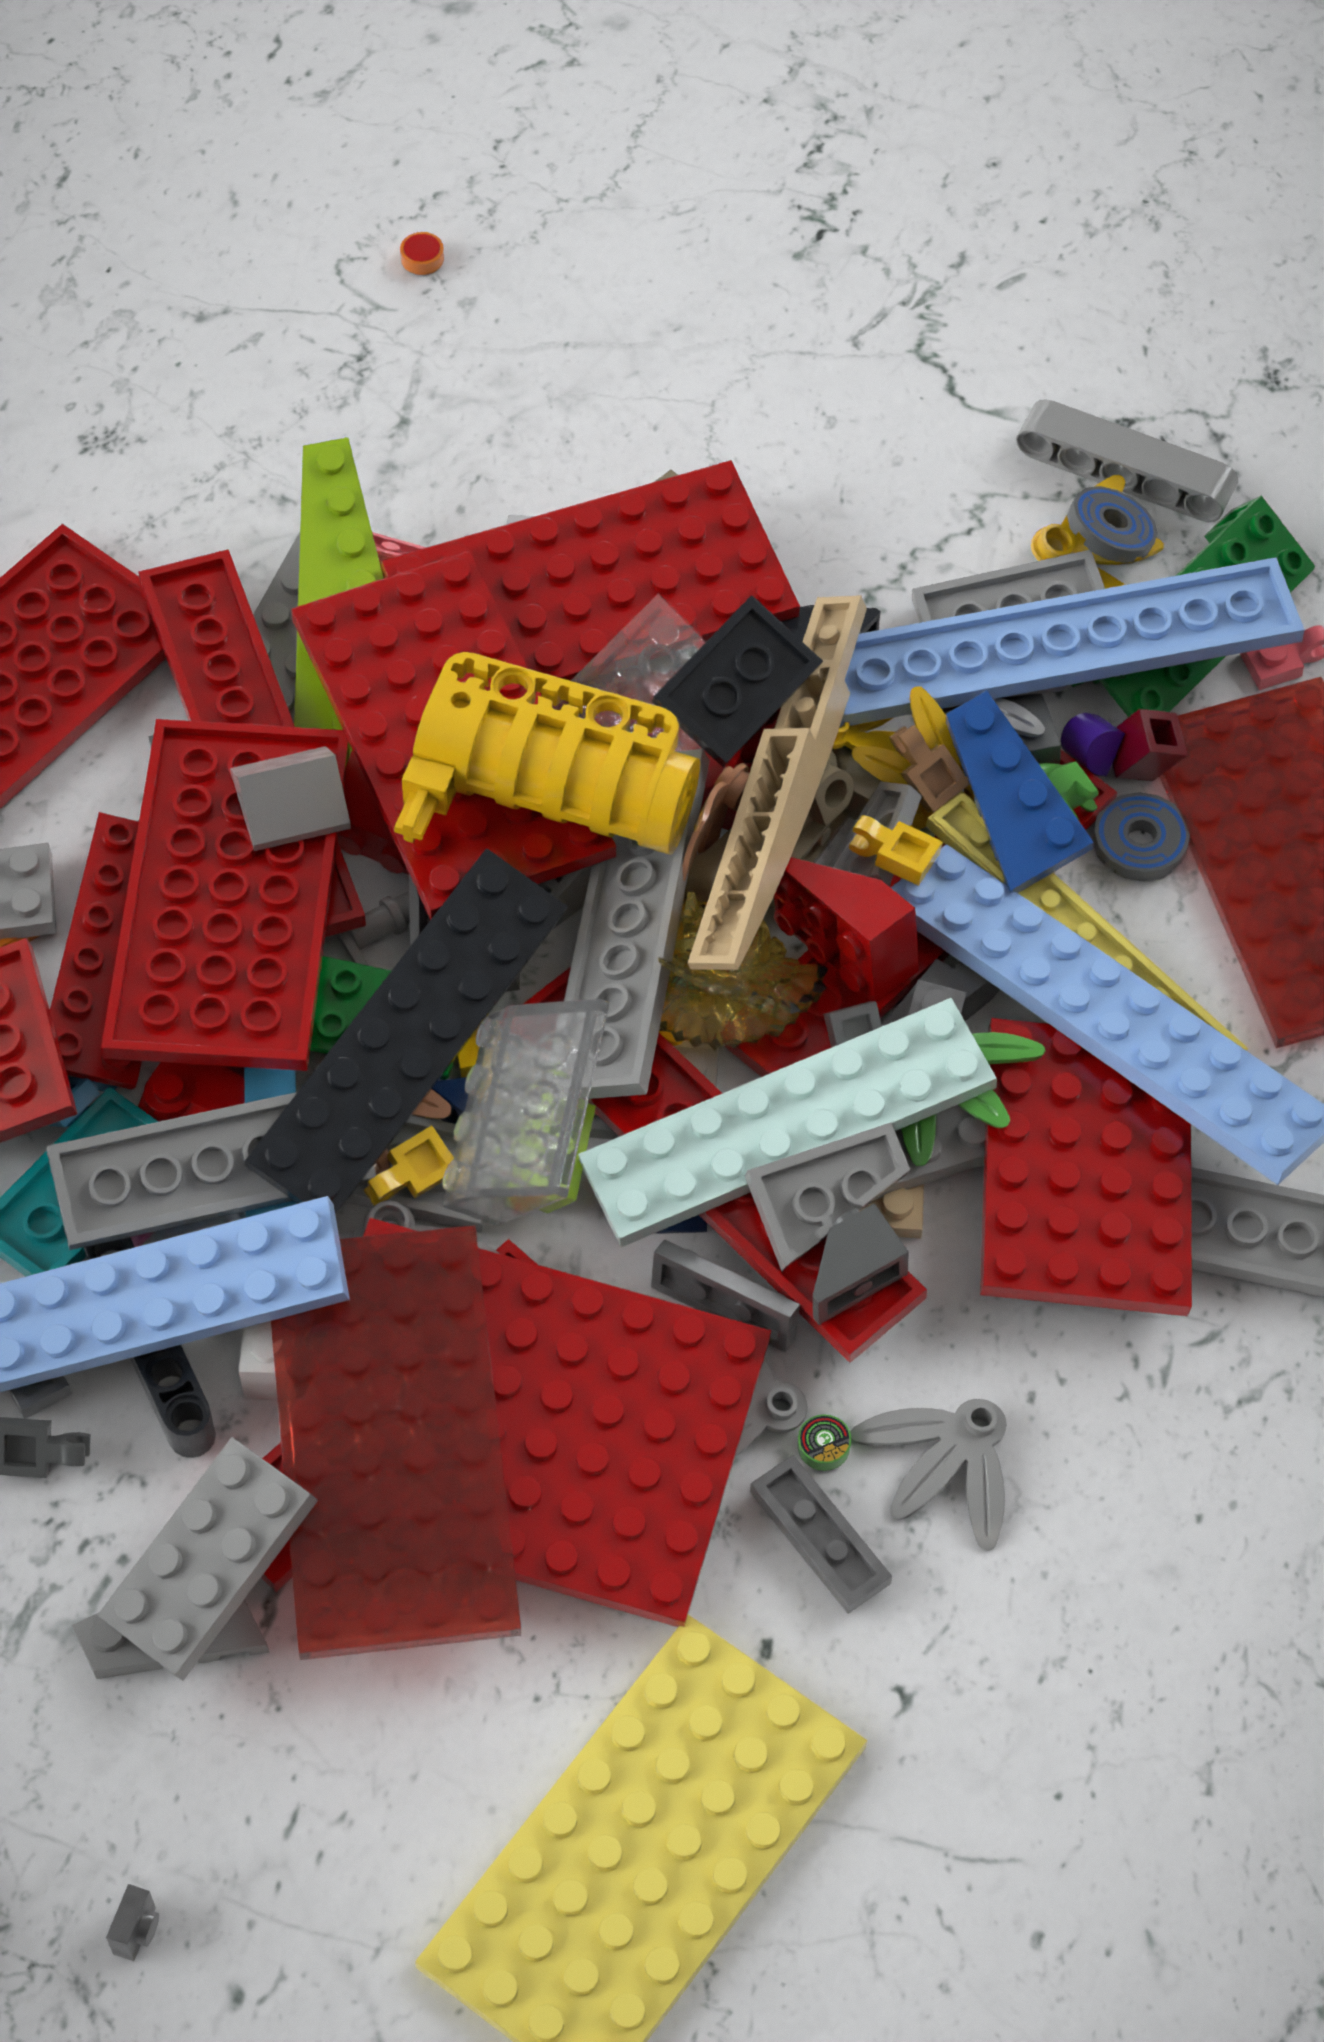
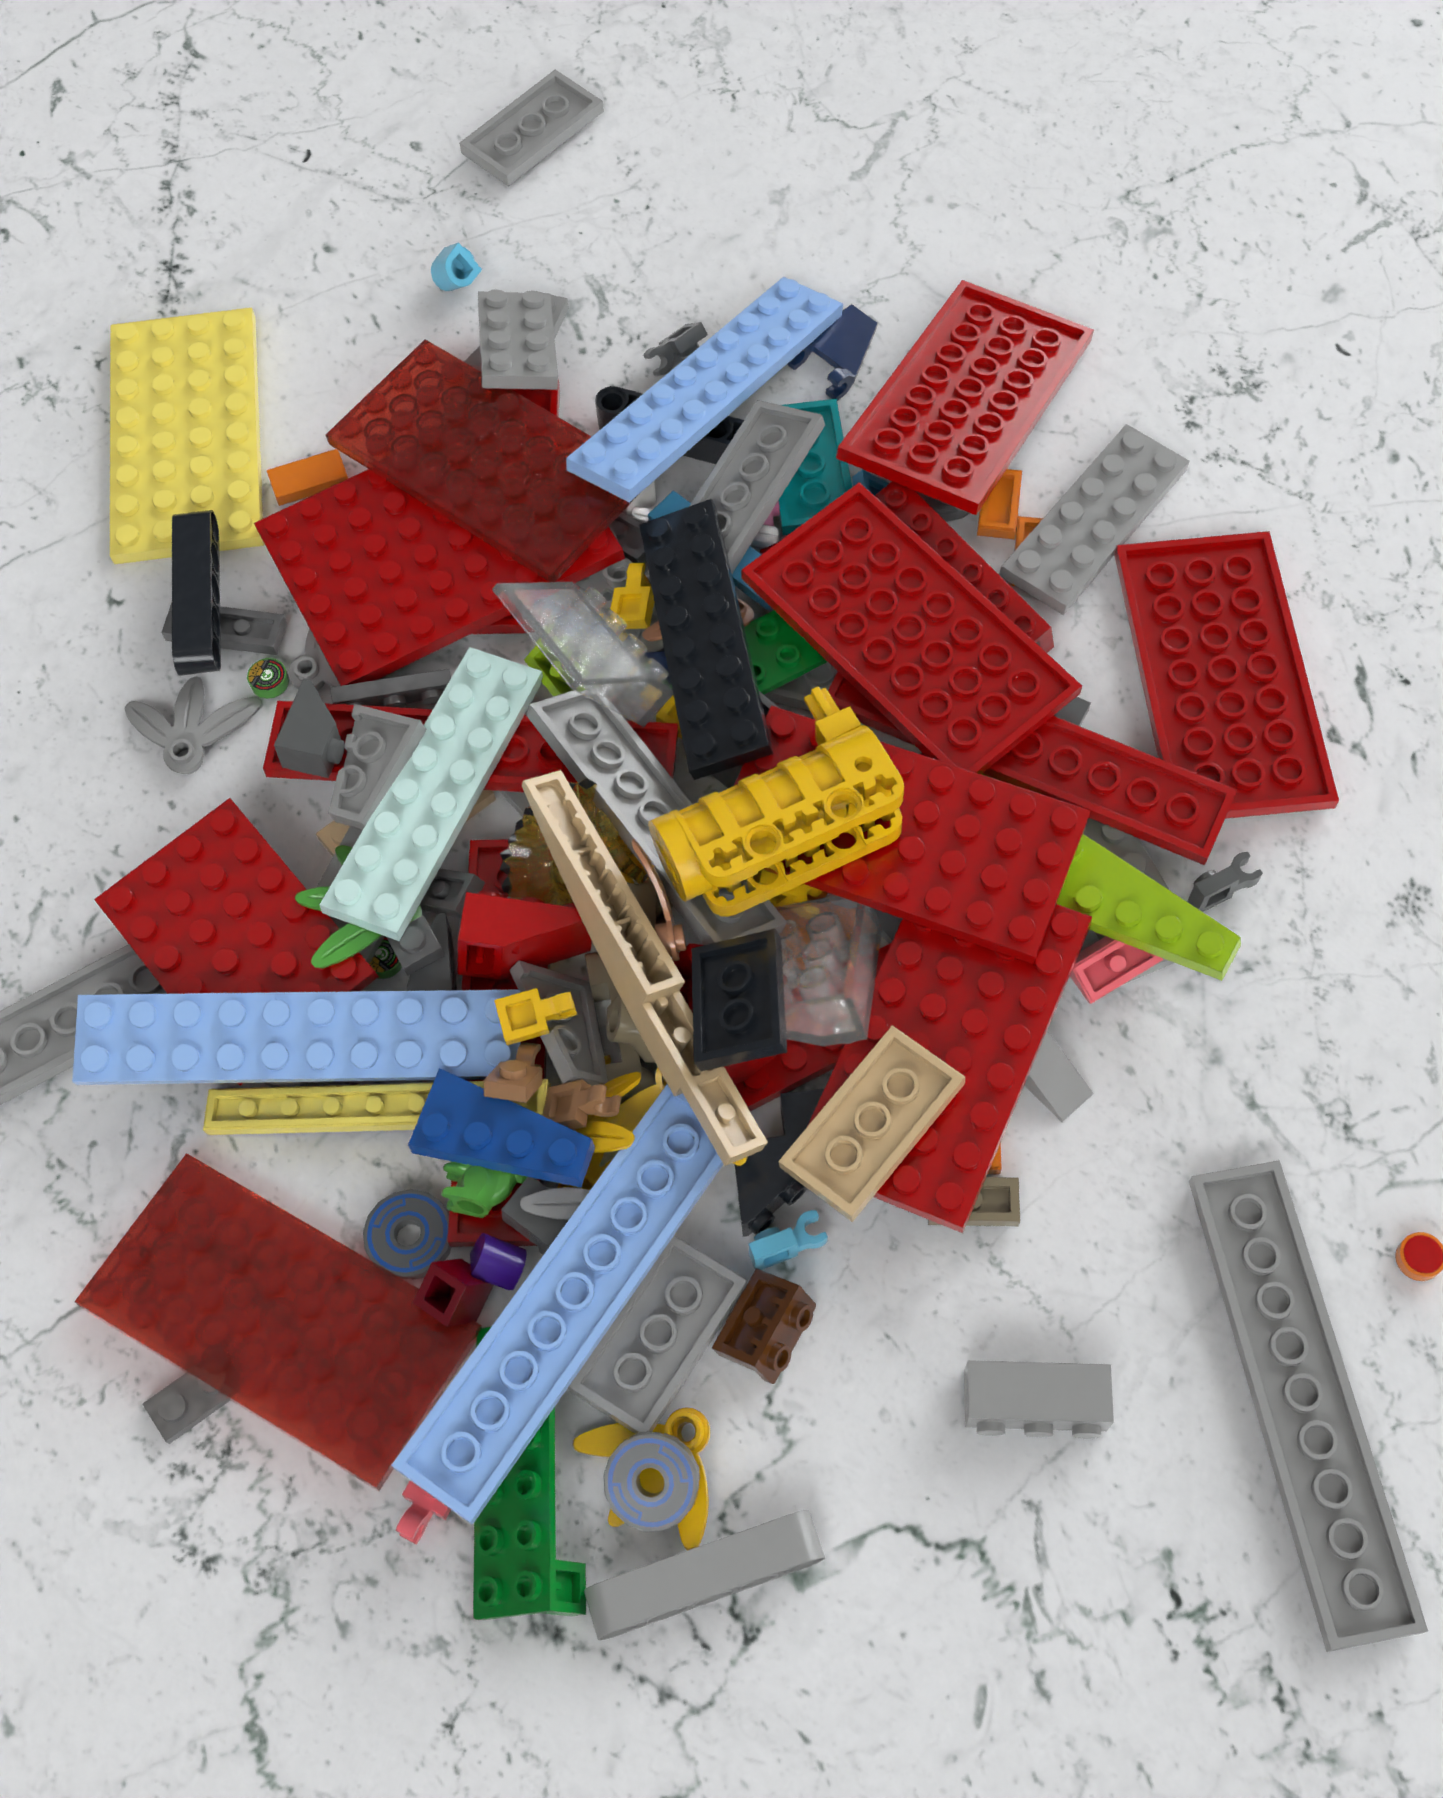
camera: 140 degrees right, 5 degrees up
(133, 1923) = (398, 222): flat silver plate -> none
(148, 1778) = (454, 268): none -> medium azure plate
(245, 545) = (1215, 888): none -> dark grey plate
(291, 797) = (941, 699): light grey slope -> none
(568, 1656) = (306, 476): none -> orange tile
(602, 252) = (1306, 1409): none -> light grey plate
(722, 554) = (872, 1123): none -> tan plate
(784, 375) = (1038, 1398): none -> light grey brick
(820, 1569) = (196, 593): none -> black beam
(875, 590) = (778, 1246): none -> medium azure plate
(927, 558) = (765, 1325): none -> reddish brown bracket
(961, 819) = (516, 1078): none -> medium nougat plate

